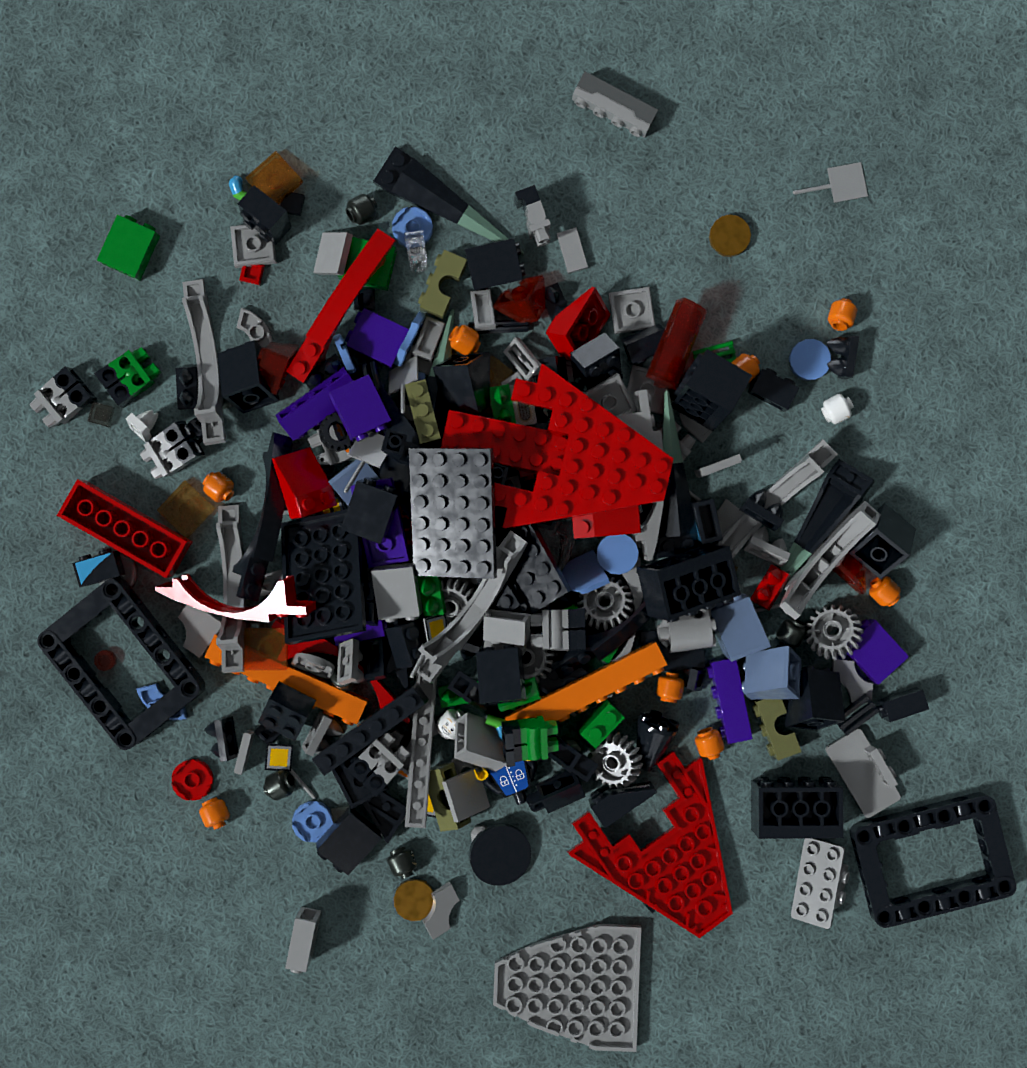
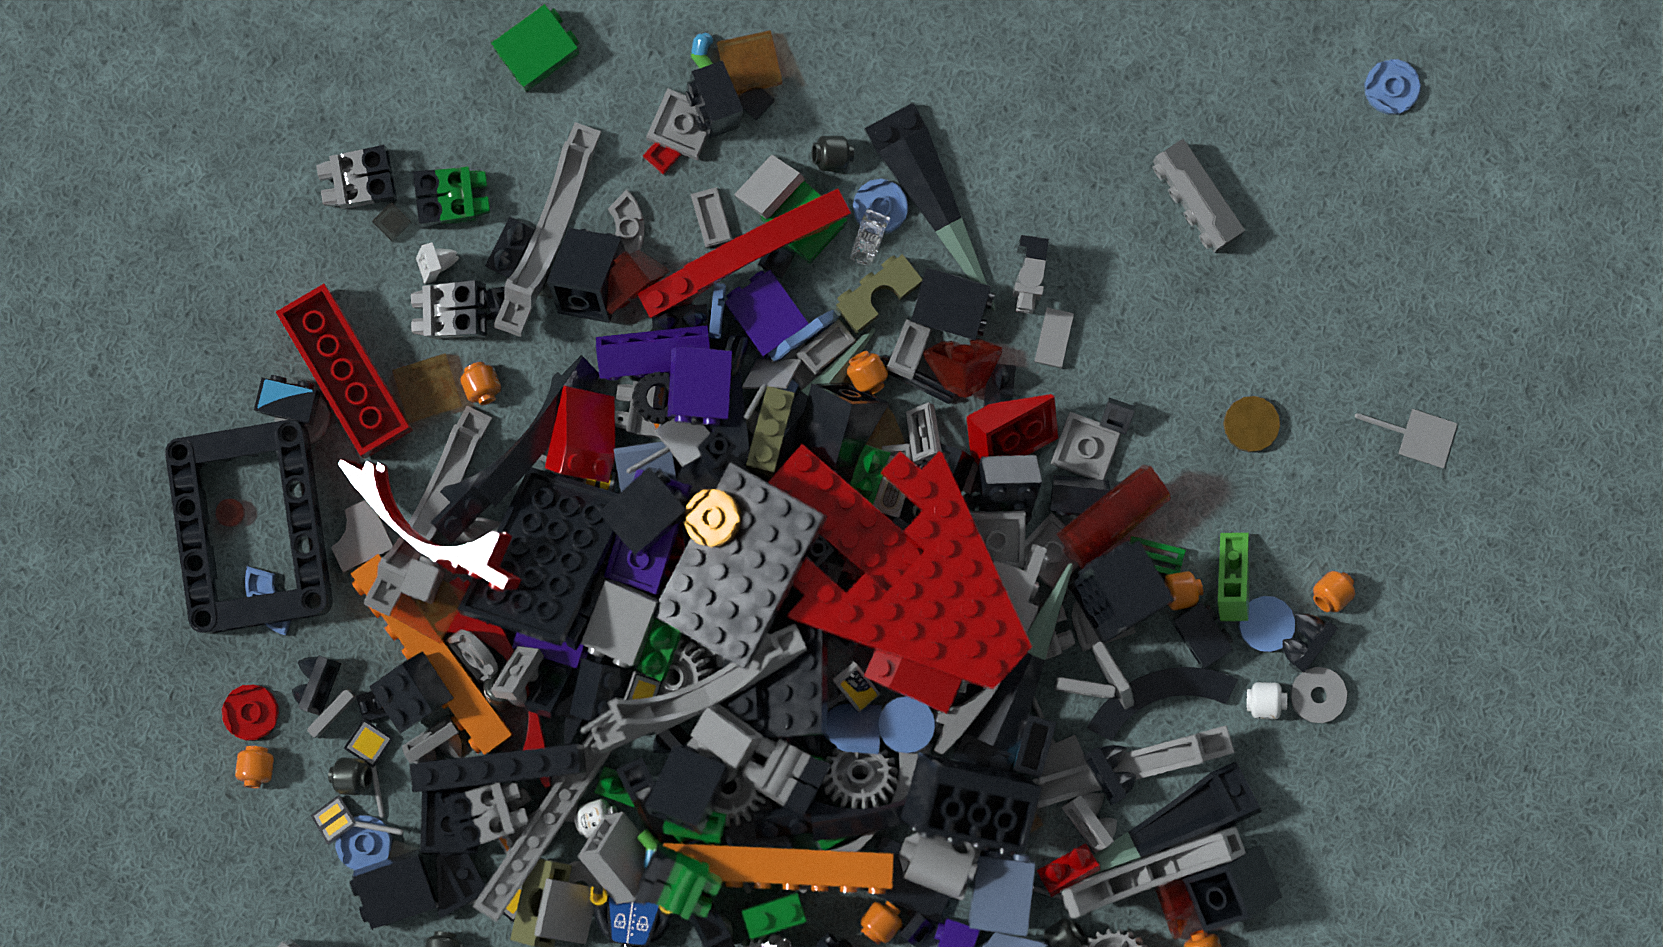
camera: 30 degrees right, 5 degrees down
(251, 637) = (422, 580): none -> light grey brick
(286, 817) = (335, 820): none -> piece
(306, 295) = (711, 217): none -> light grey tile
(418, 491) = (712, 518): none -> tile
(571, 547) = (856, 687): none -> slope
(641, 278) = (1117, 416): none -> black tile
(732, 447) = (1113, 675): none -> light grey tile
(761, 439) = (1161, 685): none -> black tile
(773, 340) = (1234, 577): none -> bright green slope
(876, 378) = (1335, 695): none -> light grey tile

